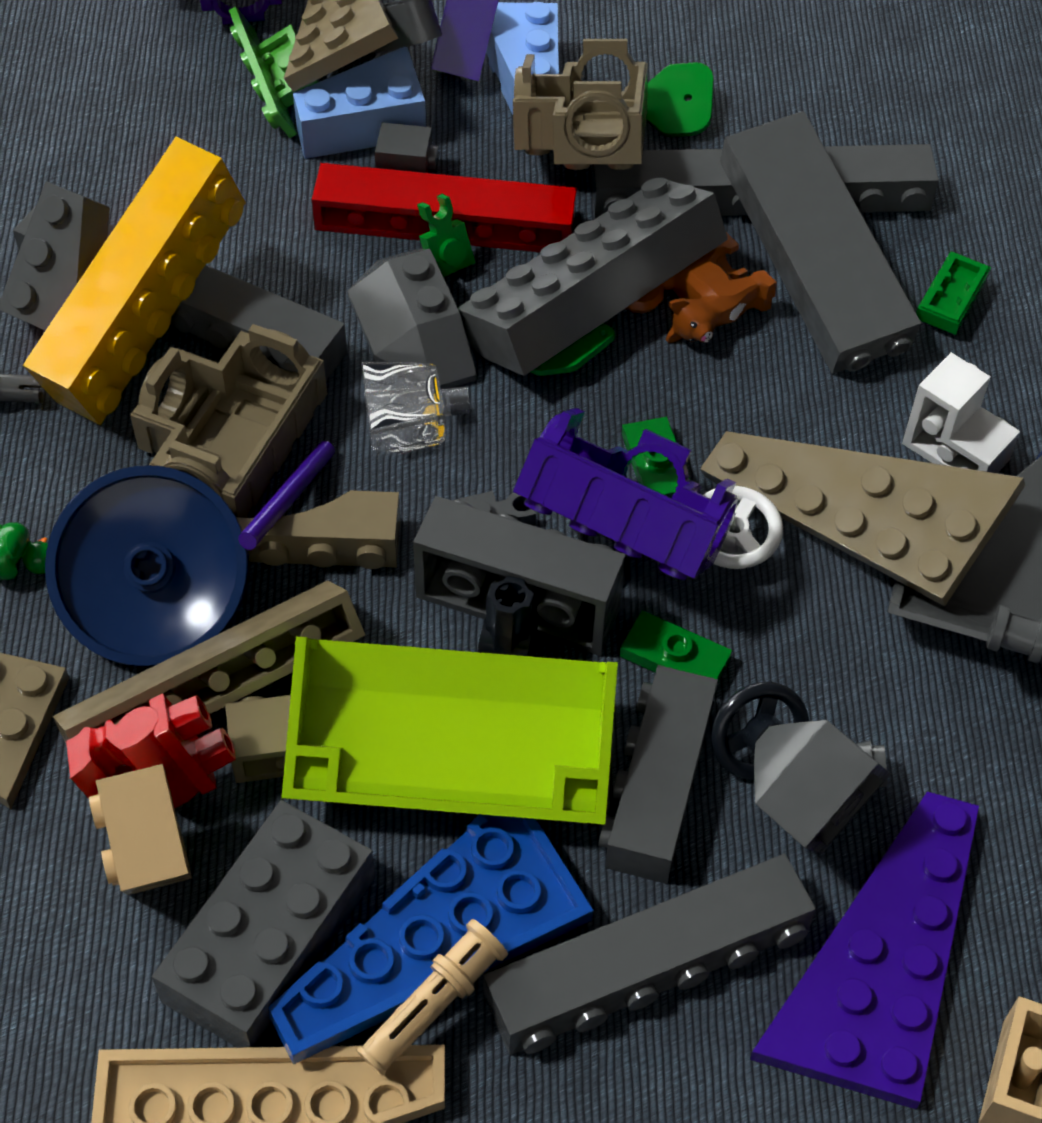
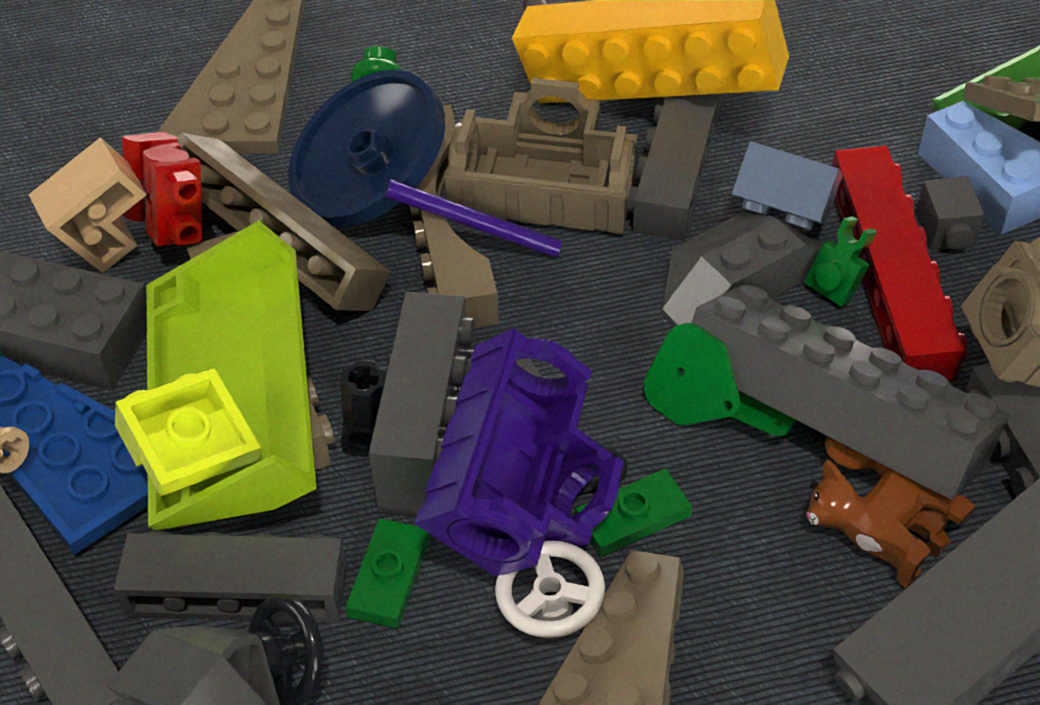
camera: 80 degrees right, 5 degrees down
(353, 241) = (787, 184): none -> sand blue brick
(408, 406) = (617, 286): clear torso -> none
(531, 754) = (185, 431): none -> neon yellow plate
(558, 370) = (706, 381): none -> green piece

